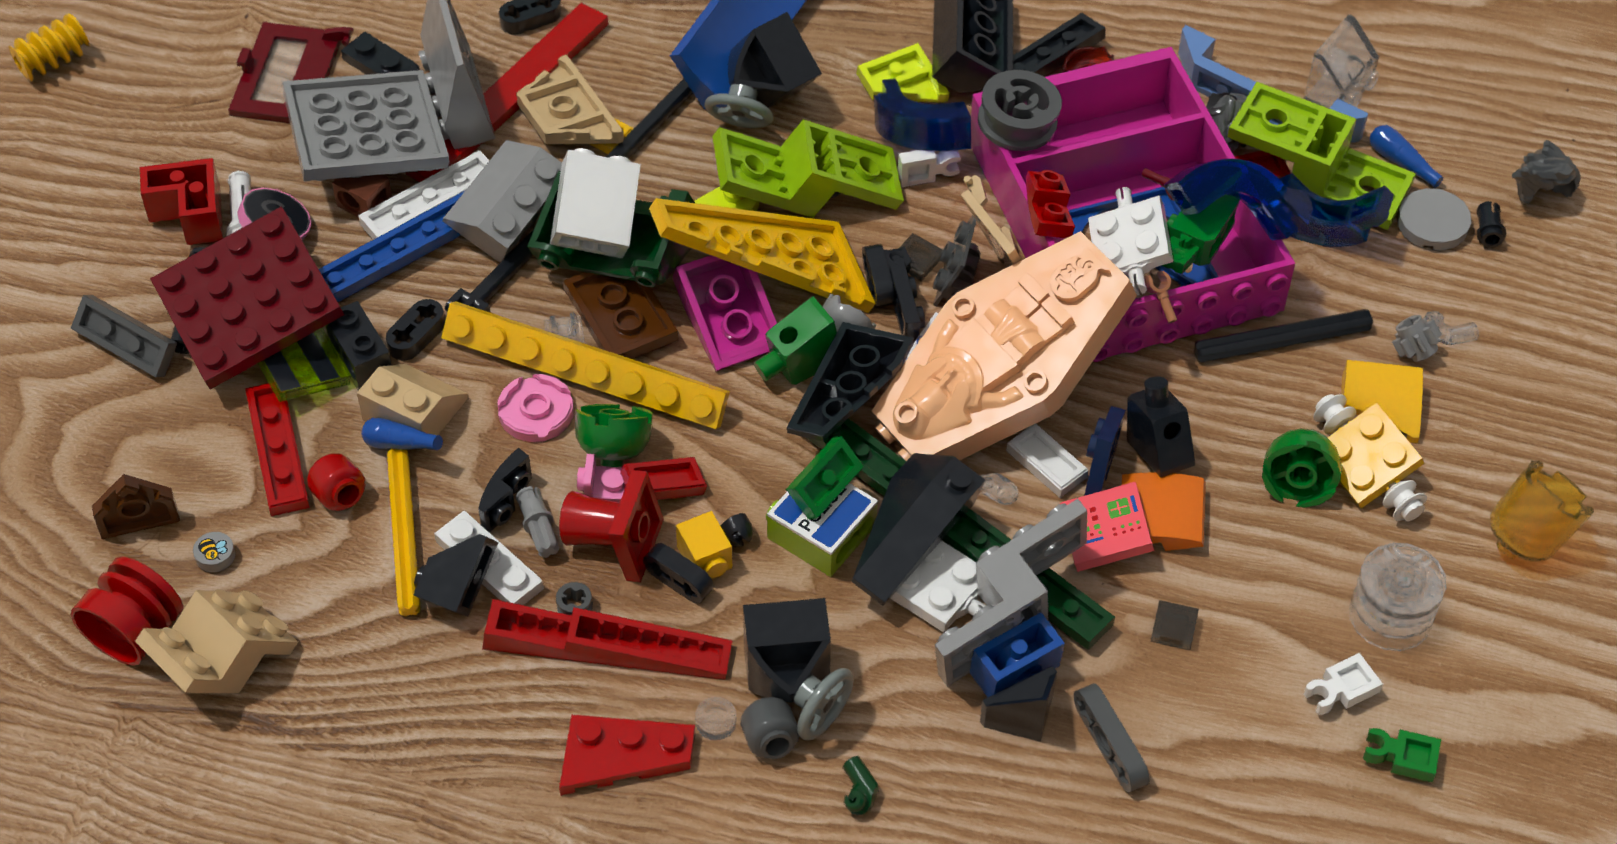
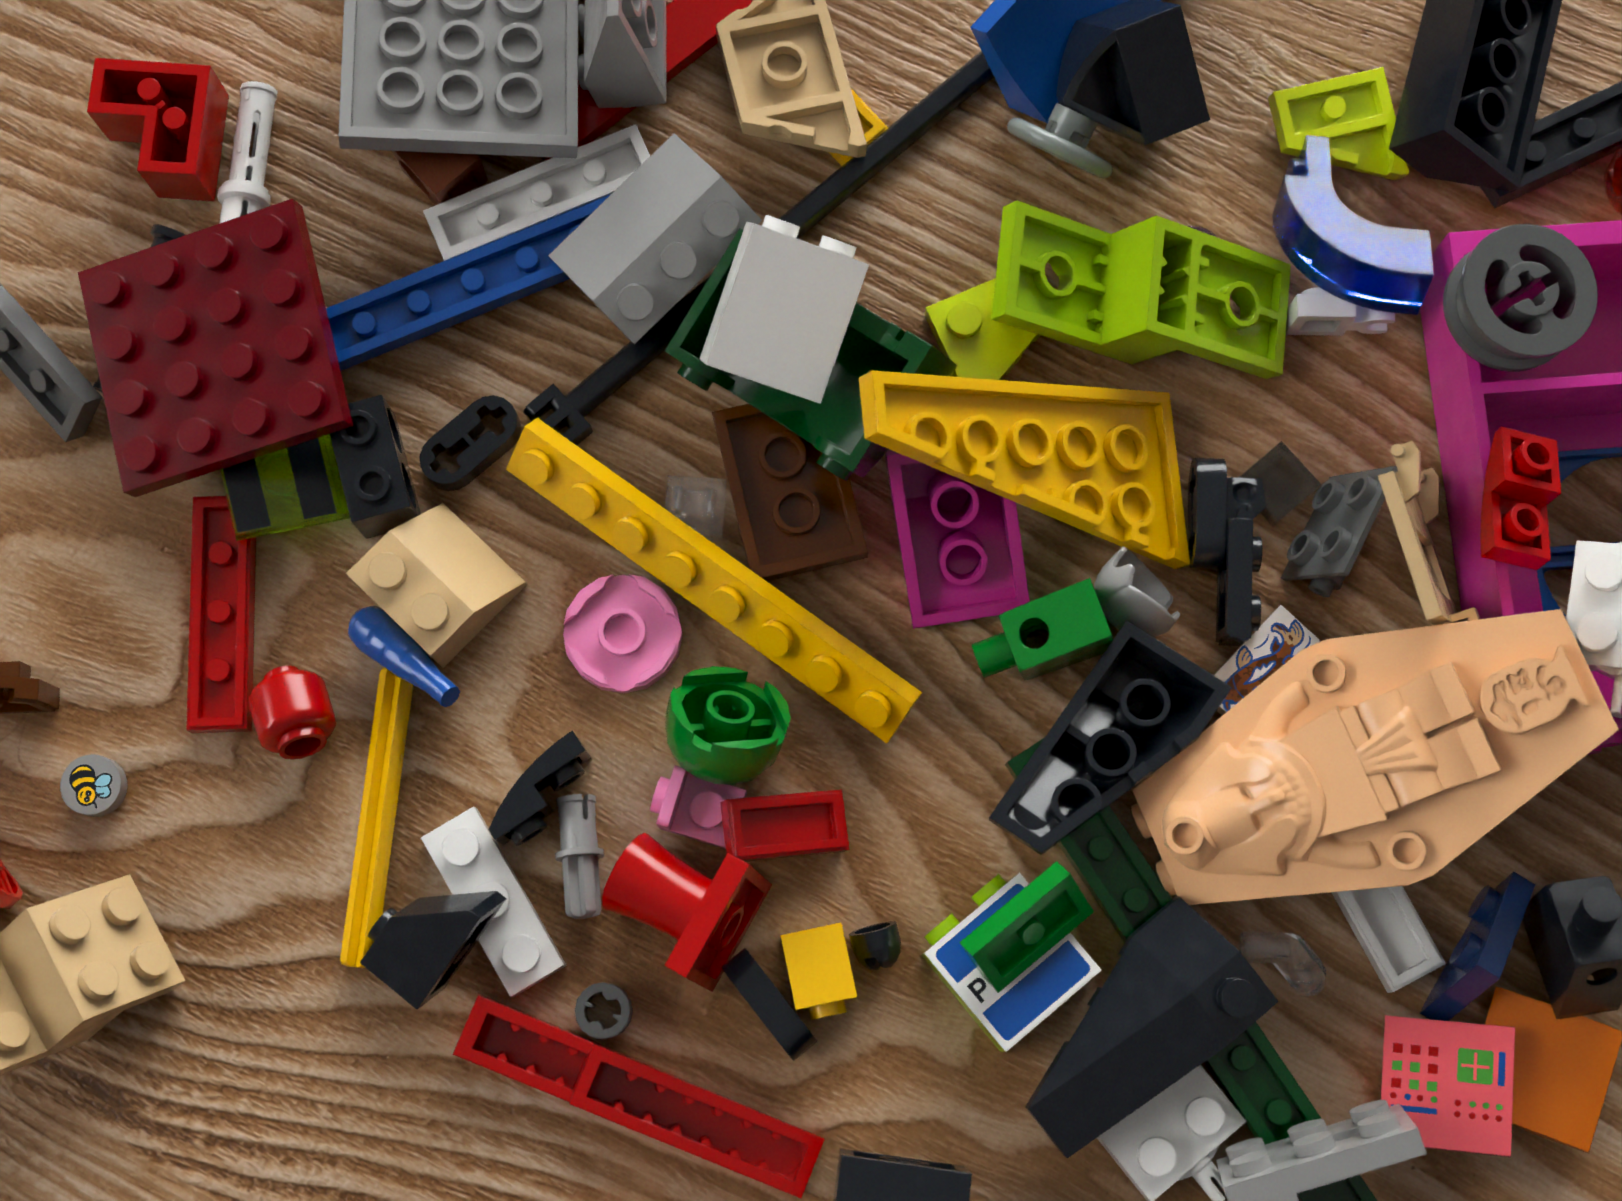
camera: 15 degrees right, 25 degrees up
(265, 200) = (299, 168): black tile -> none

